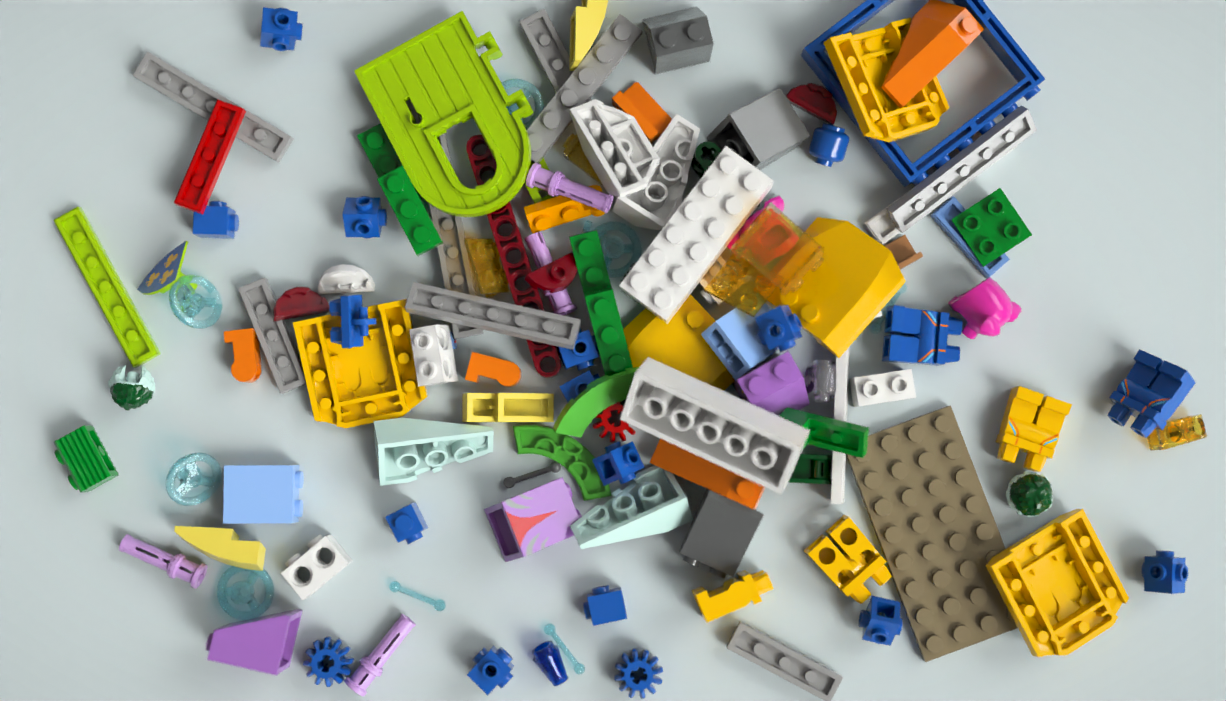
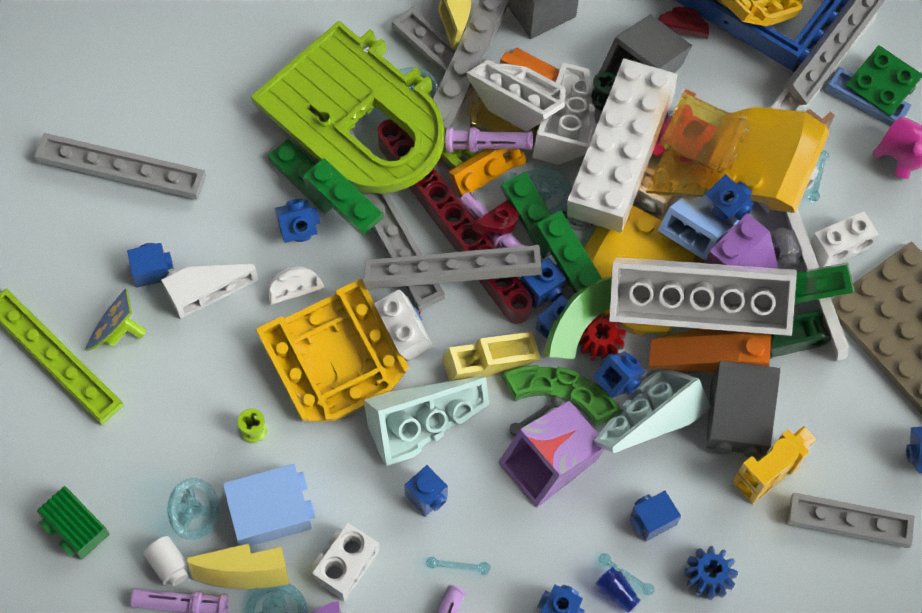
camera: 25 degrees left, 20 degrees down
(131, 391) = (105, 440): piece -> none
(159, 519) = (167, 561): none -> white brick
(191, 303) = (146, 342): clear light blue piece -> none
(209, 157) = (131, 204): red tile -> none
(246, 354) = (216, 382): orange leg -> none
(250, 259) = (203, 285): none -> white slope
(259, 414) = (248, 418): none -> lime bush
(273, 336) = (237, 354): light grey plate -> none
(280, 29) = (168, 81): blue brick -> none
(299, 303) = (253, 315): dark red plate -> none
(353, 321) = (309, 300): blue hips -> none
(487, 266) = (424, 231): clear yellow hinge -> none
(503, 371) = (466, 325): orange leg -> none
(829, 144) = (711, 51): blue head -> none
(854, 567) = (874, 403): yellow hips -> none
(929, 339) = (858, 188): blue hips -> none

